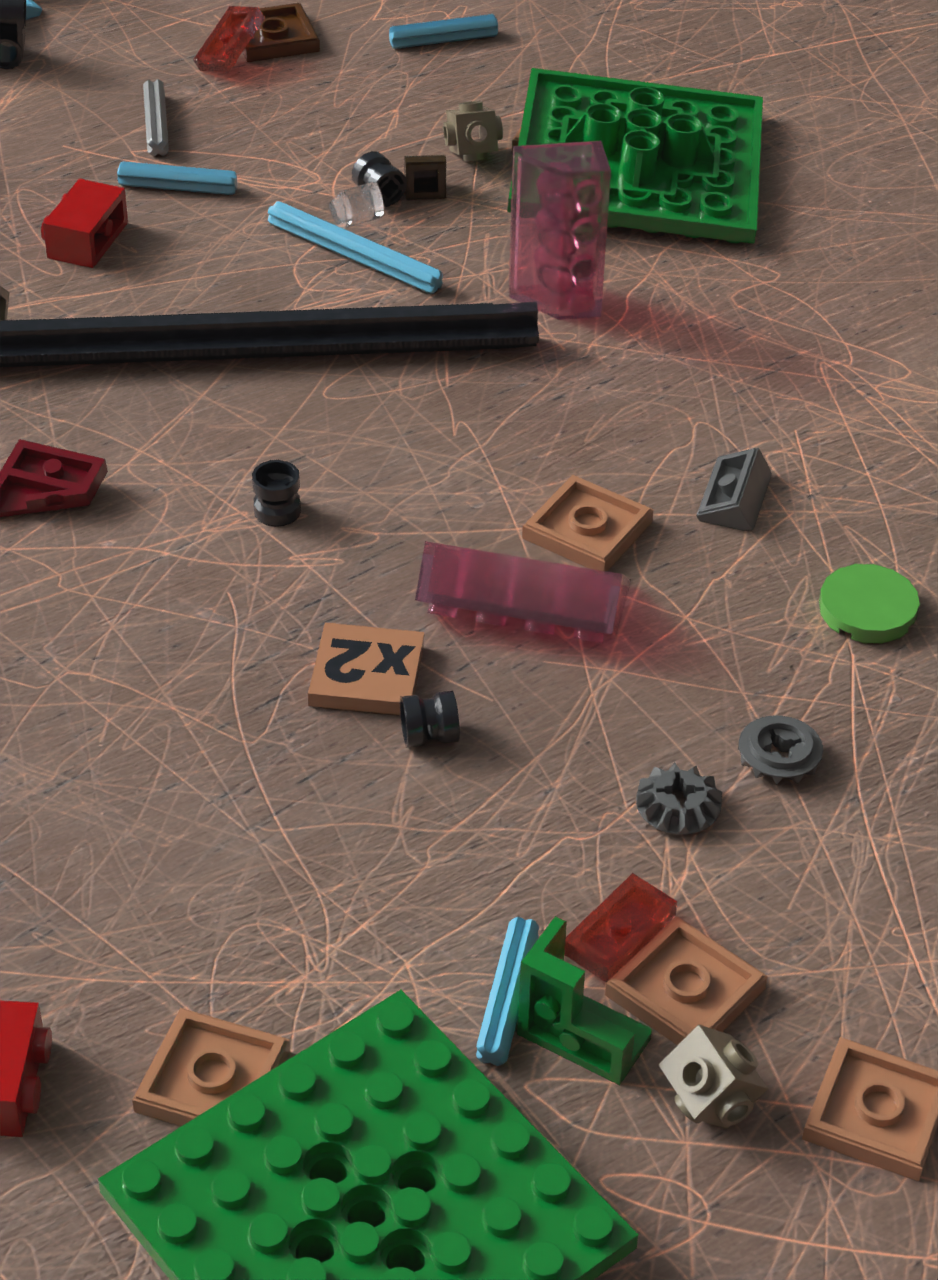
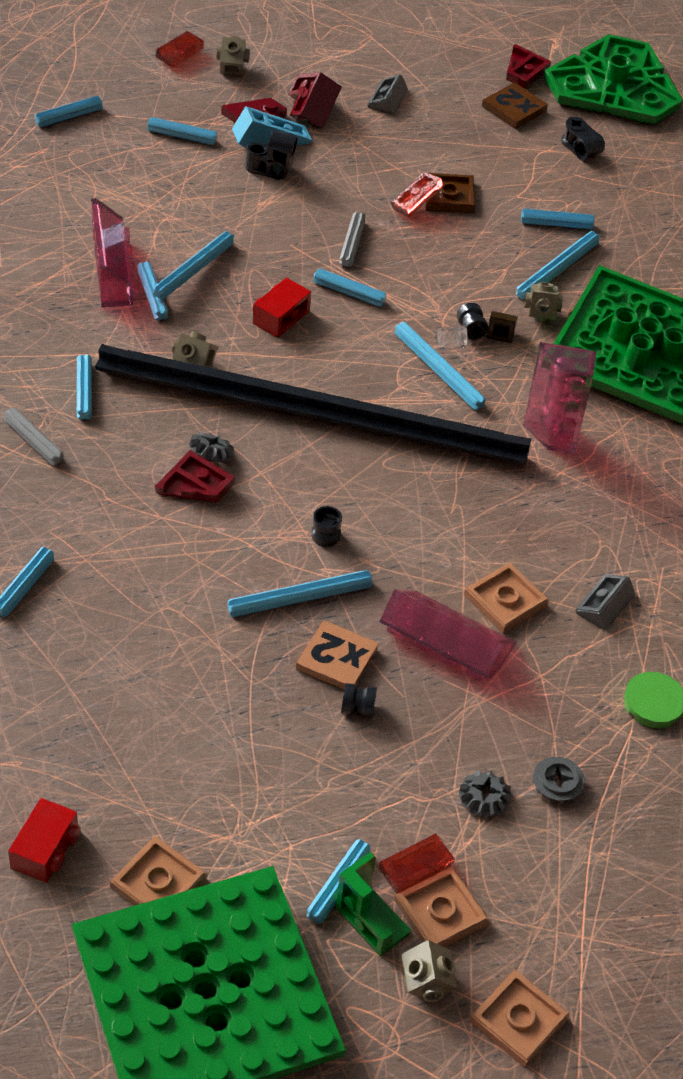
camera: 15 degrees right, 5 degrees up
(52, 429) = (211, 447): none -> dark grey gear
(269, 597) = (299, 593): none -> medium azure axle
(471, 83) = (560, 263): none -> medium azure axle

